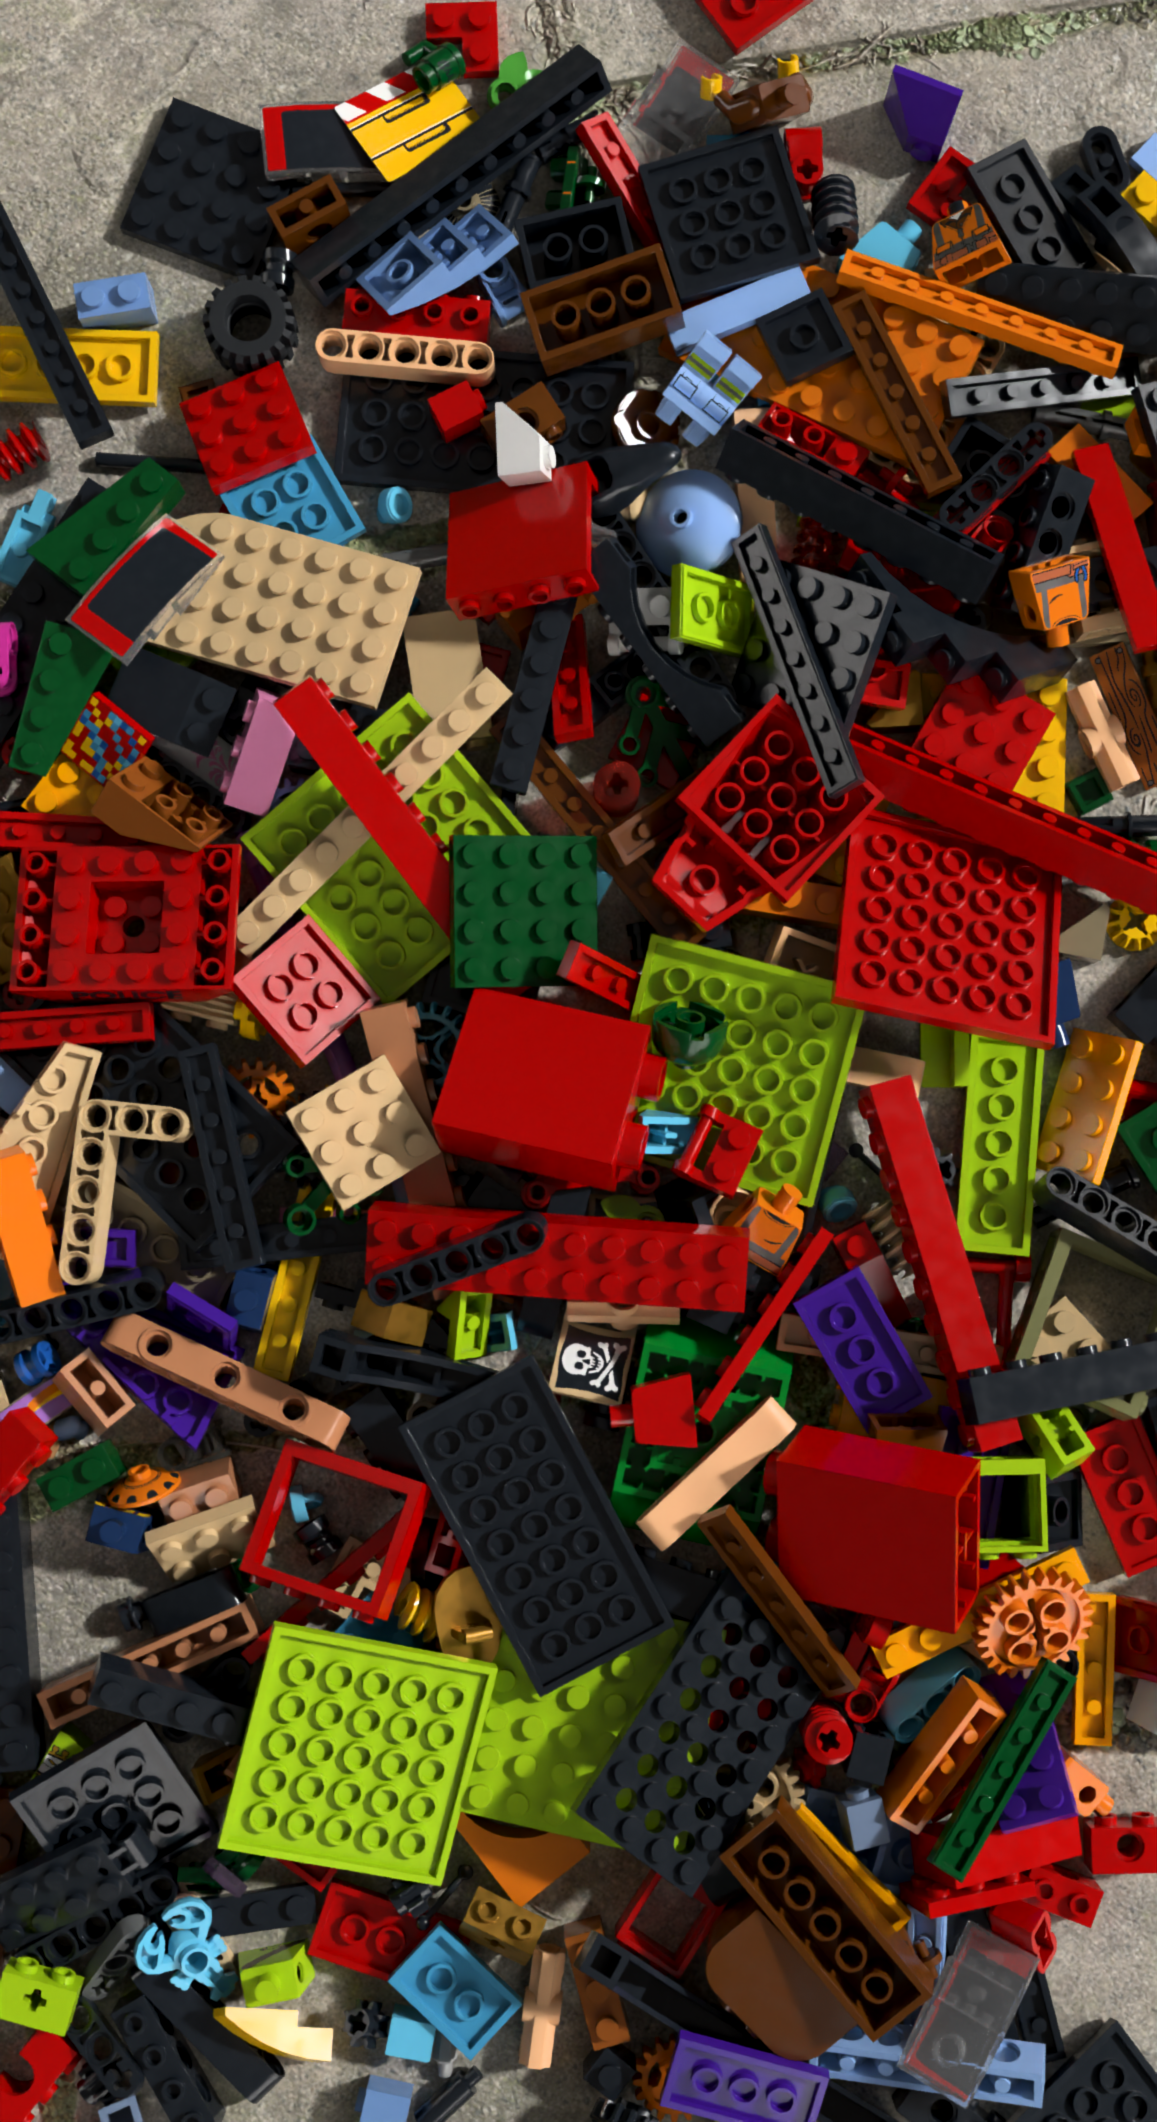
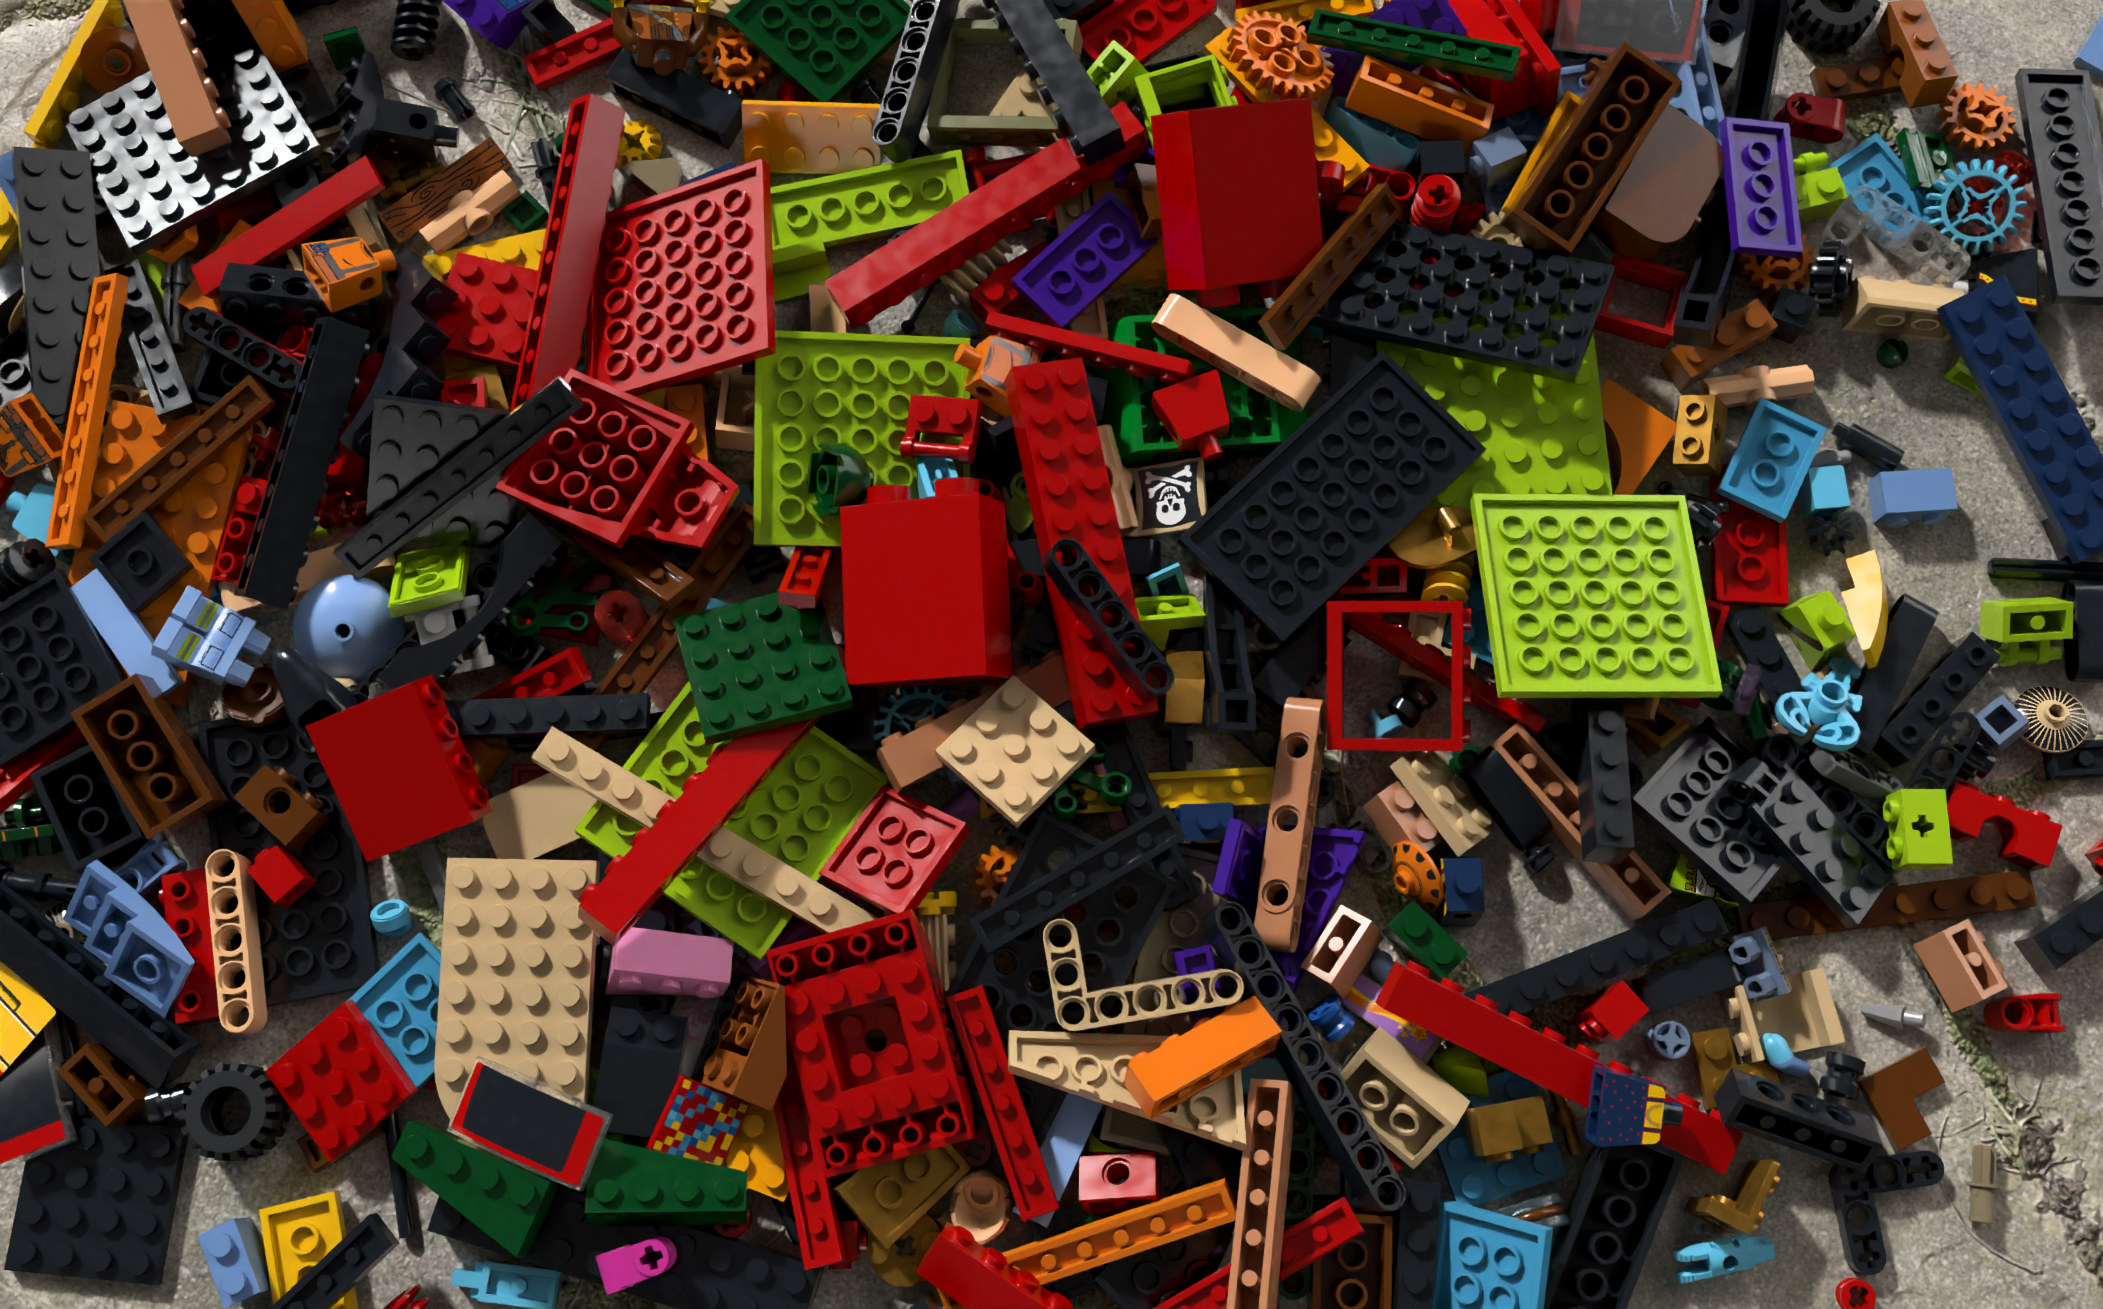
camera: 105 degrees left, 10 degrees down
(521, 451) = (305, 788): white slope -> none

